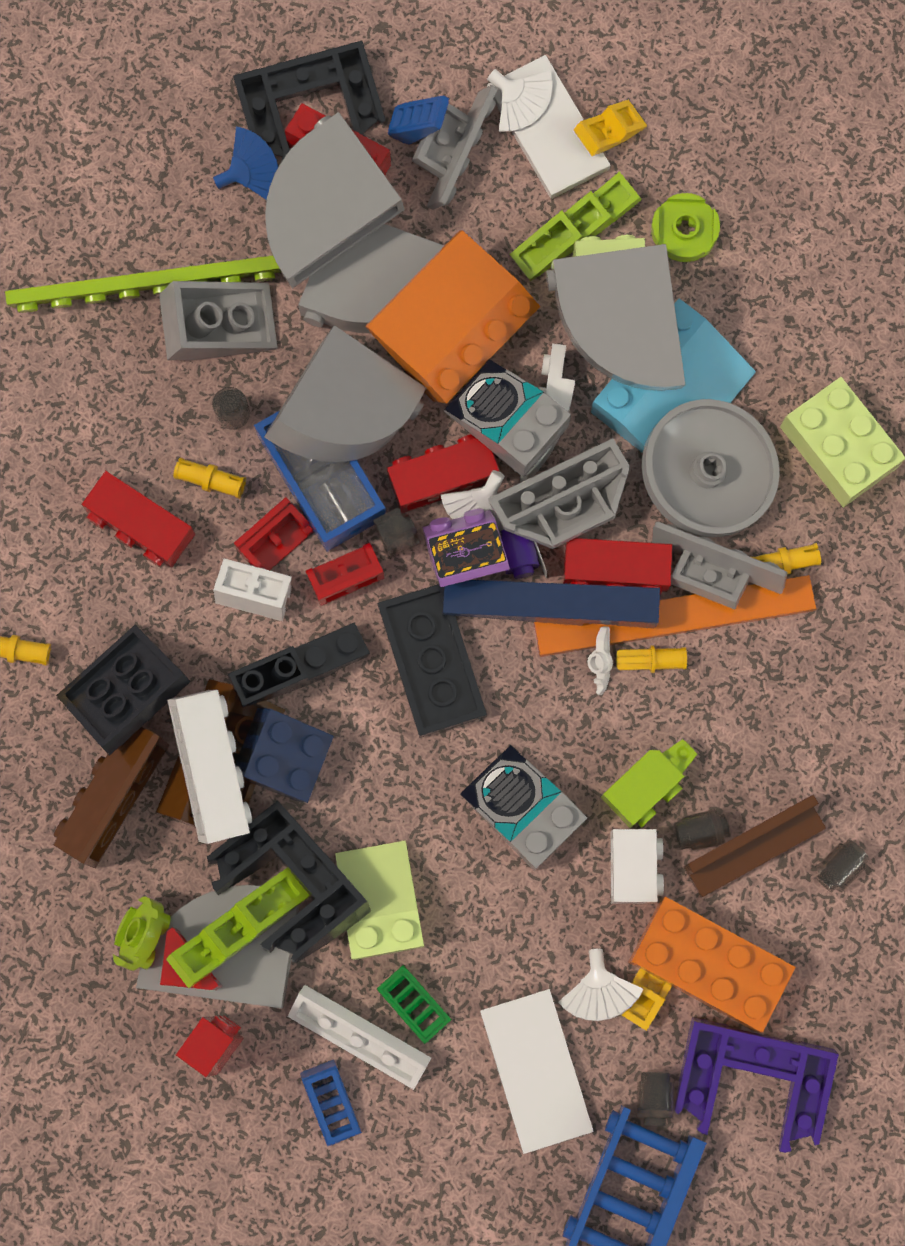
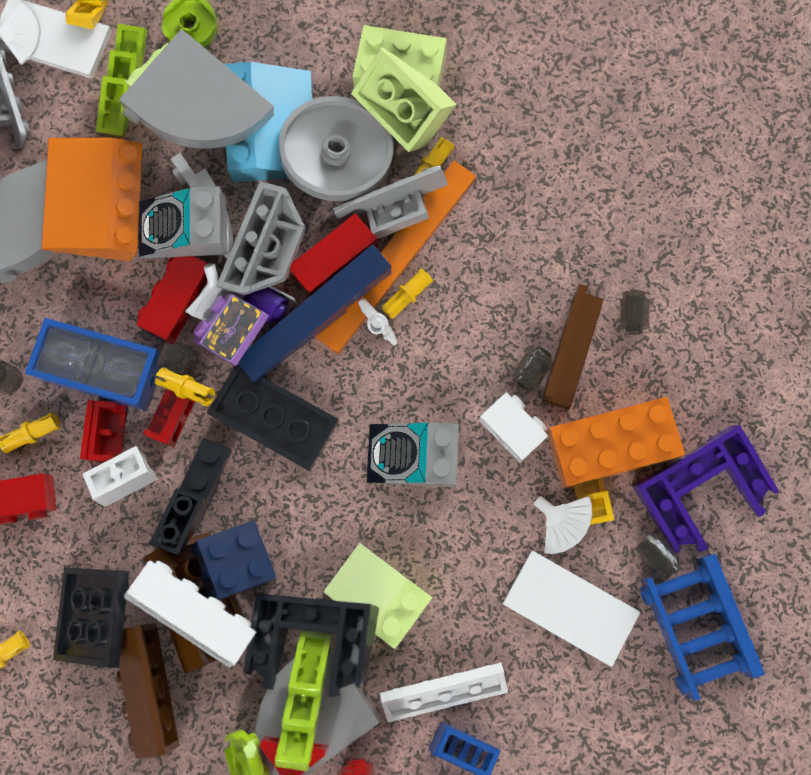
camera: 35 degrees left, 0 degrees up
(345, 403) = (70, 308): light grey brick -> none
(379, 564) = (185, 386): none -> yellow pin
(389, 984) = (446, 649): green slope -> none
(648, 782) = (474, 369): lime hinge -> none
(810, 480) = (403, 100): none -> yellowish green slope

